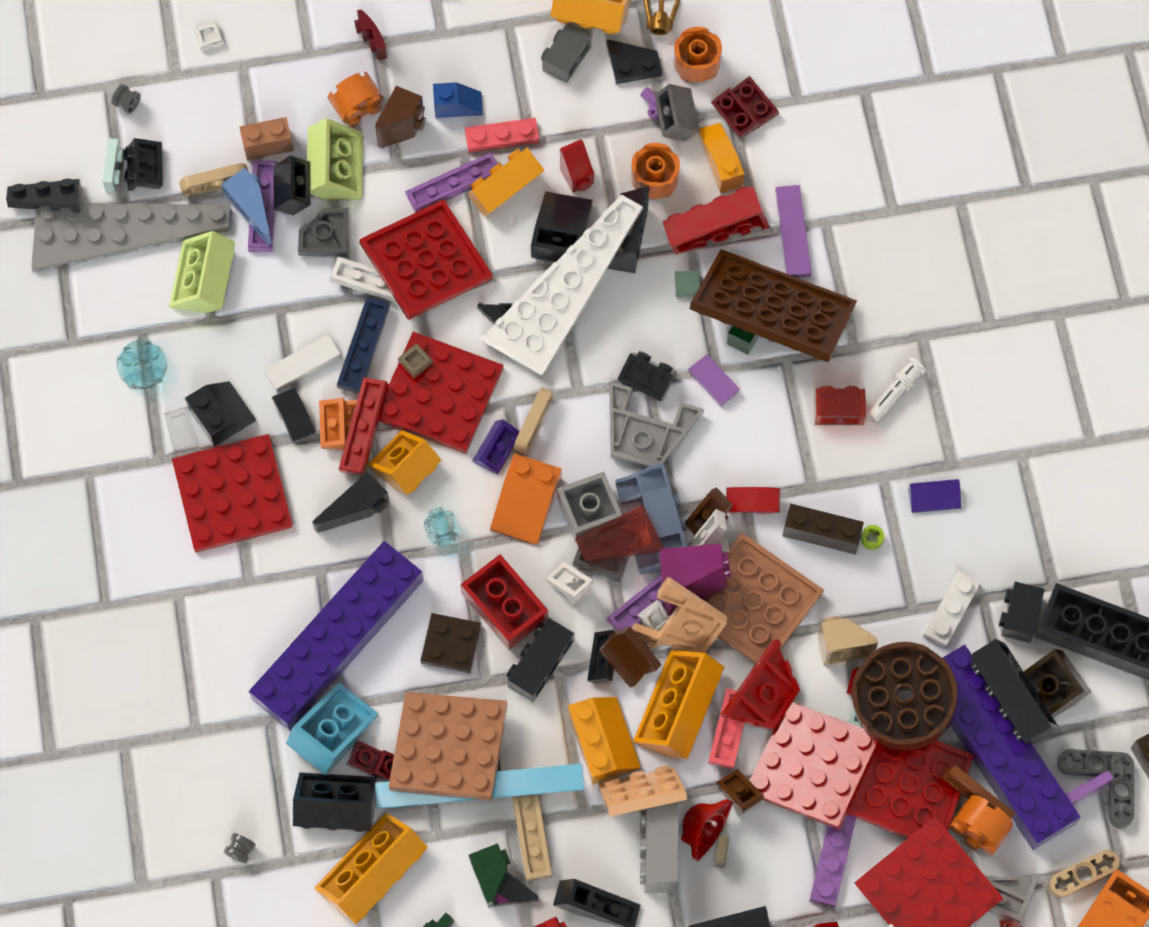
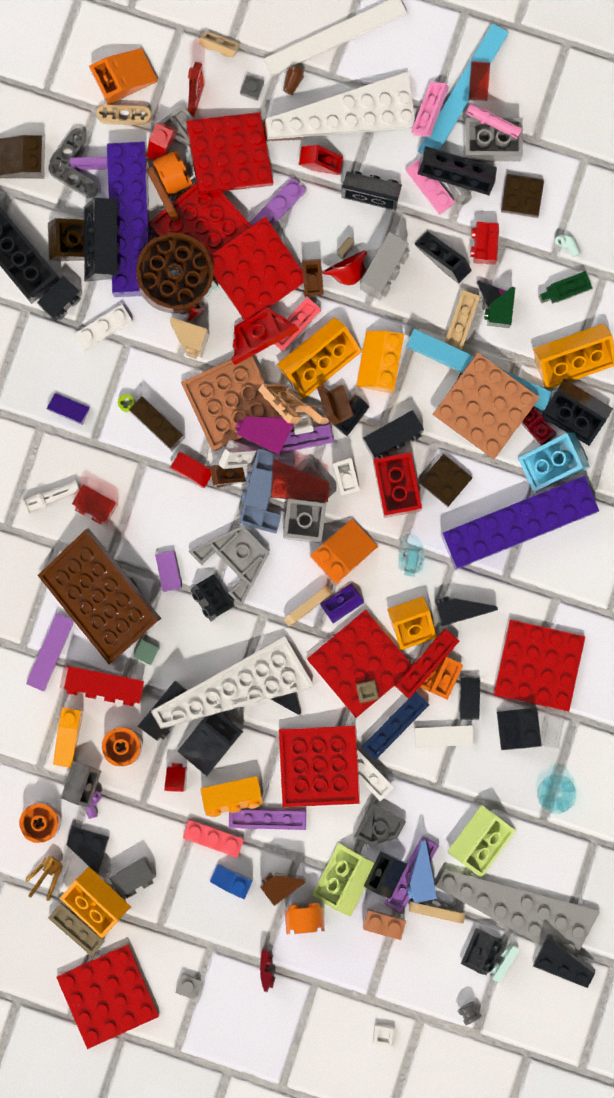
camera: 150 degrees left, 15 degrees up
(642, 790) = (377, 305): light nougat plate -> none
(745, 107) = (28, 766): dark red slope -> none
(1018, 861) = (161, 140): none -> red slope

